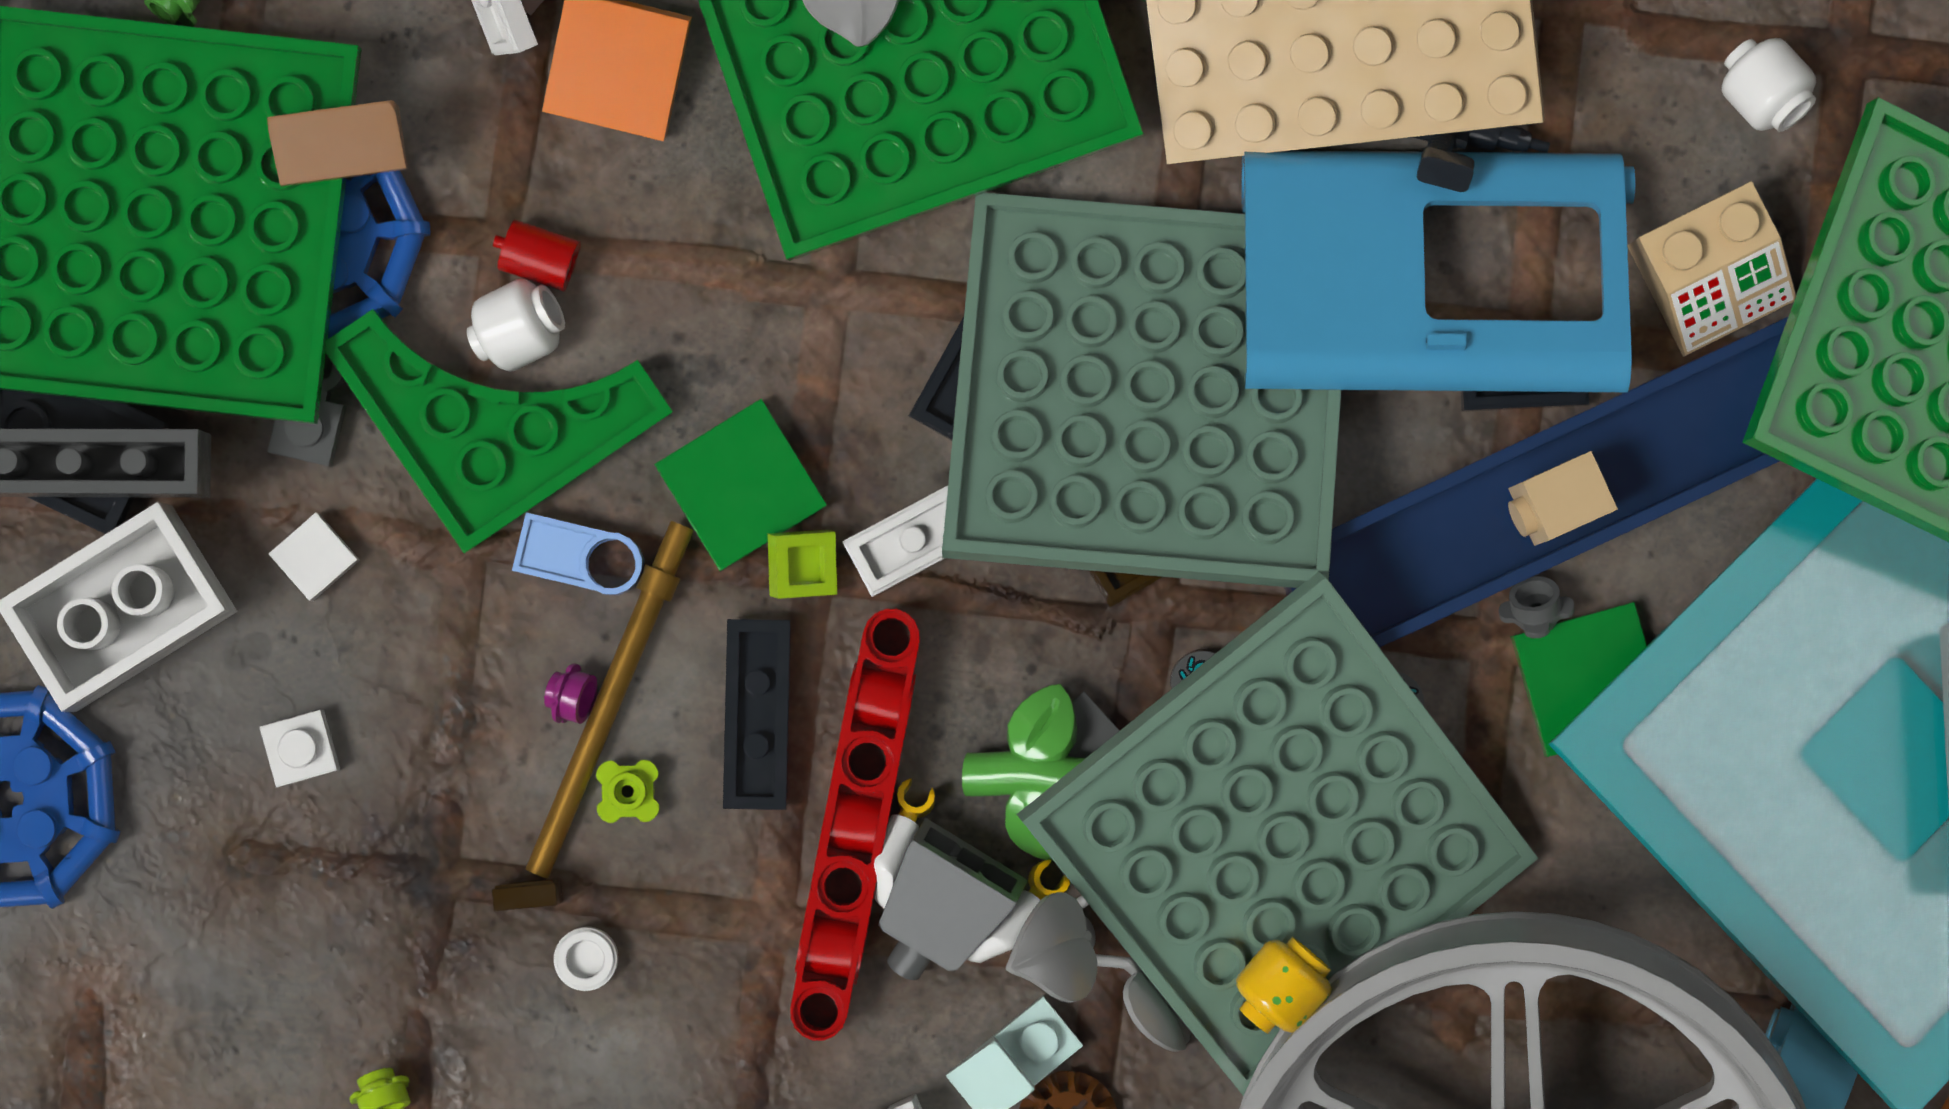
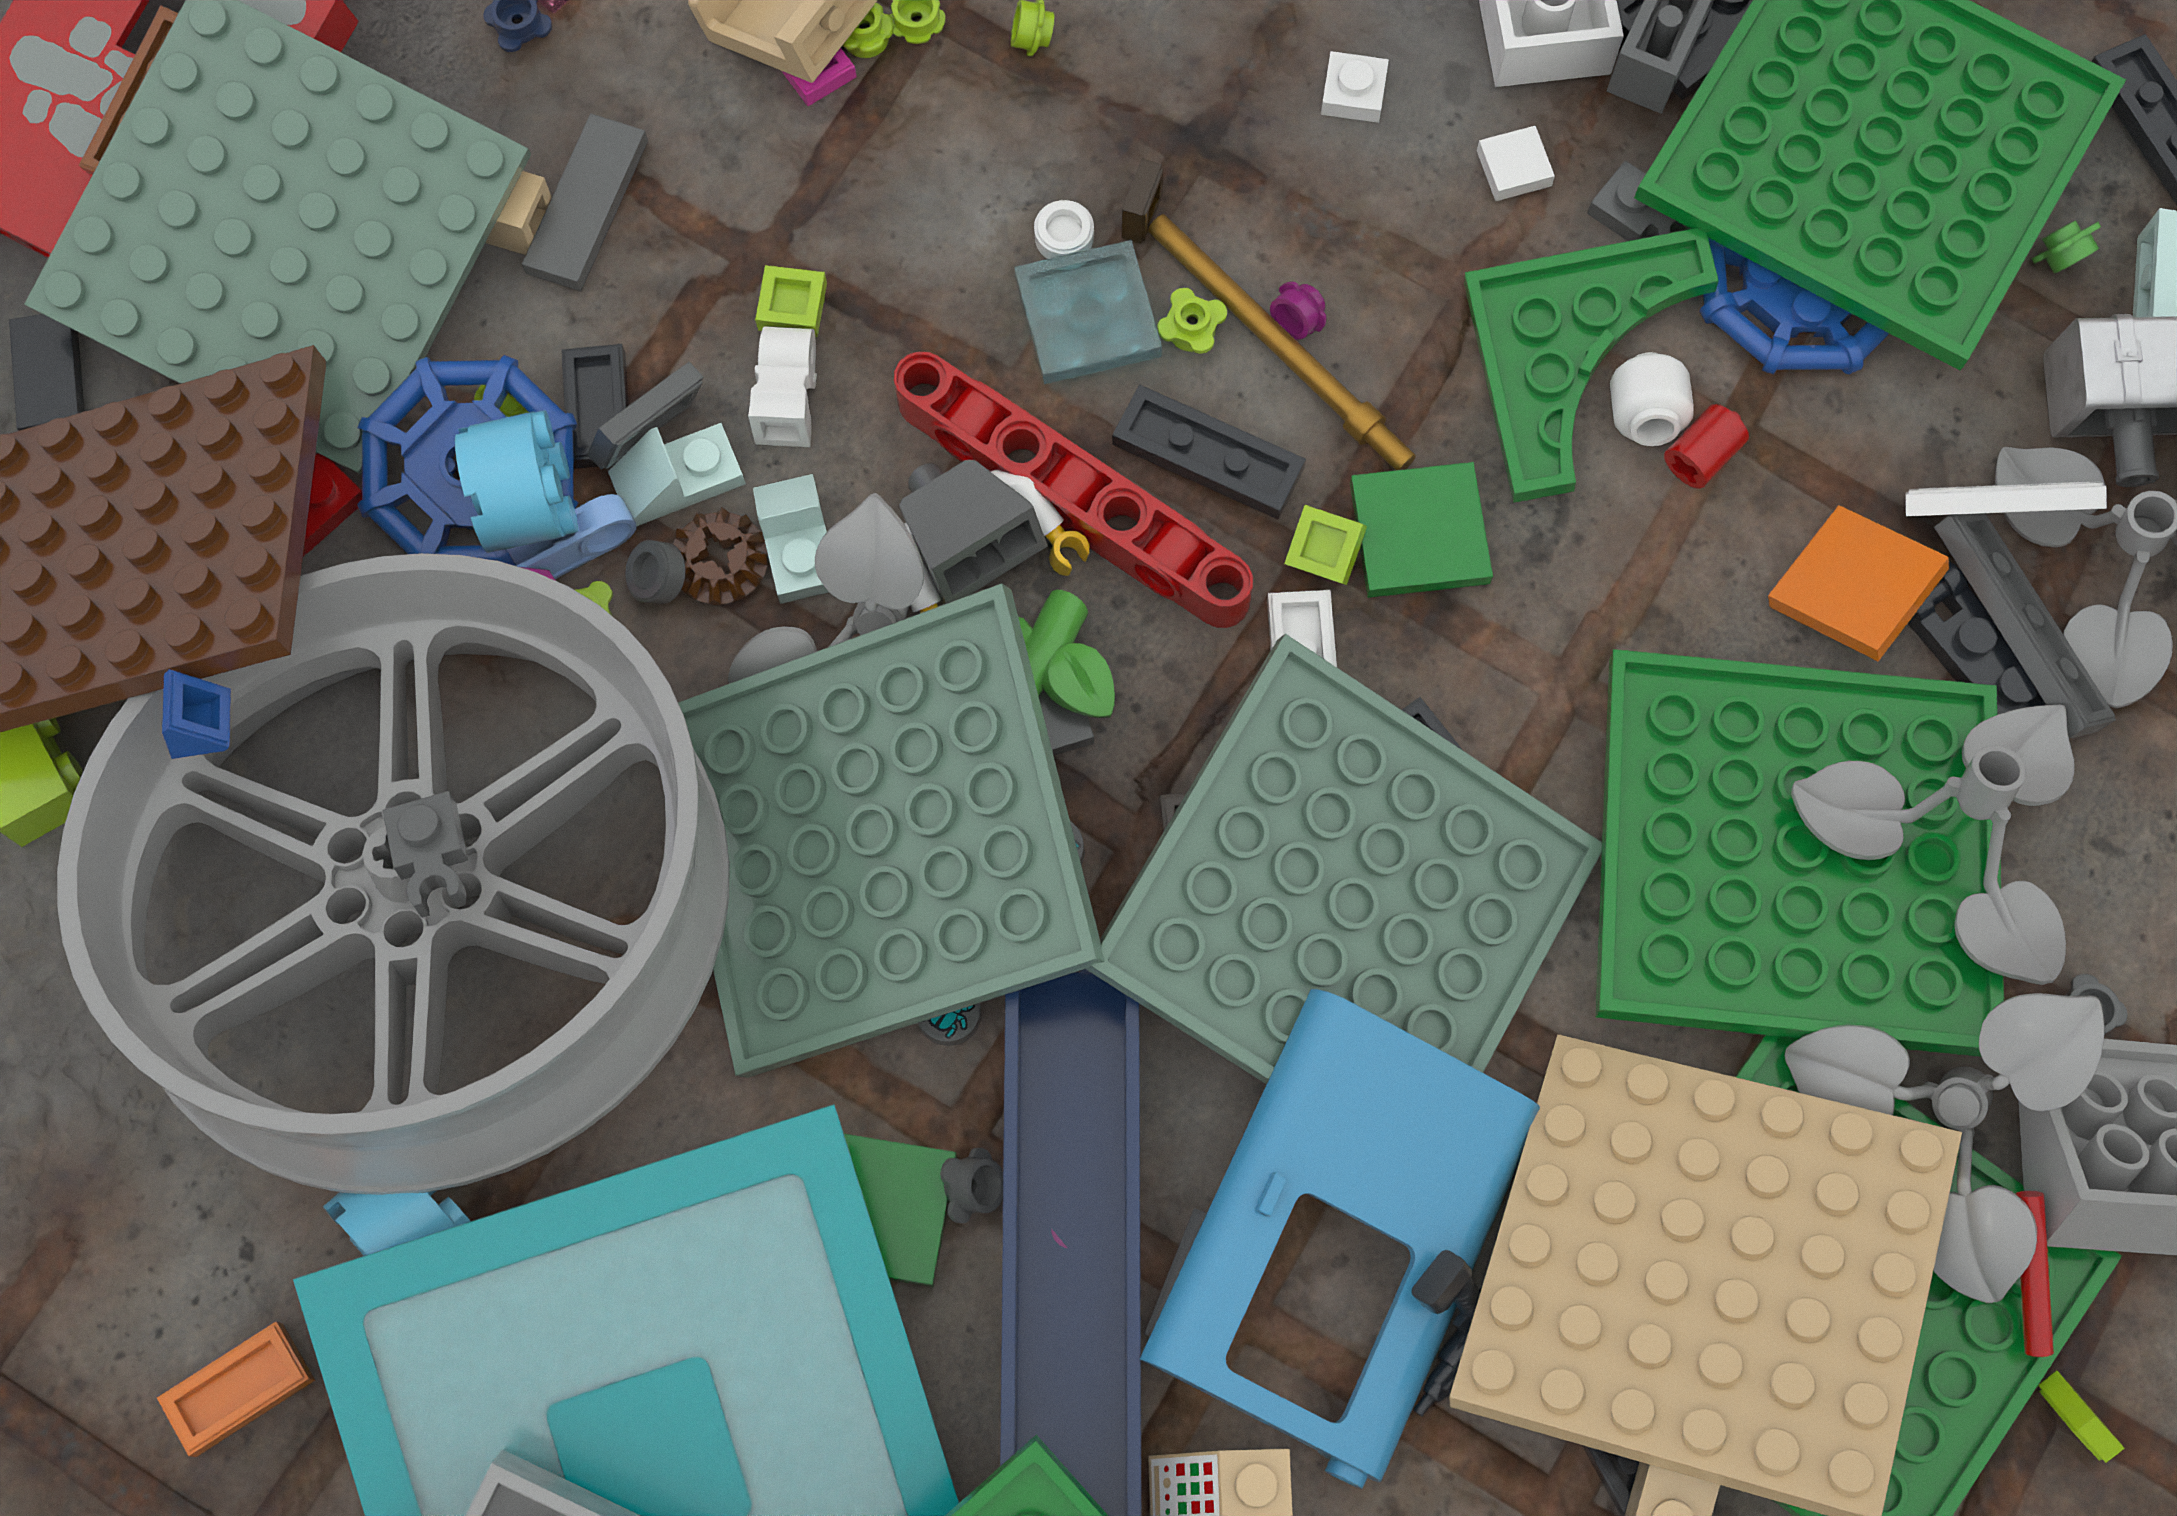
camera: 120 degrees right, 15 degrees down
(337, 142) = (1886, 300): medium nougat slope -> none
(562, 553) = (1427, 359): light blue piece -> none
(665, 894) = (1088, 312): none -> clear light blue plate
(1283, 985) = (738, 771): yellow head -> none
(1560, 499) = (1064, 1239): tan brick -> none

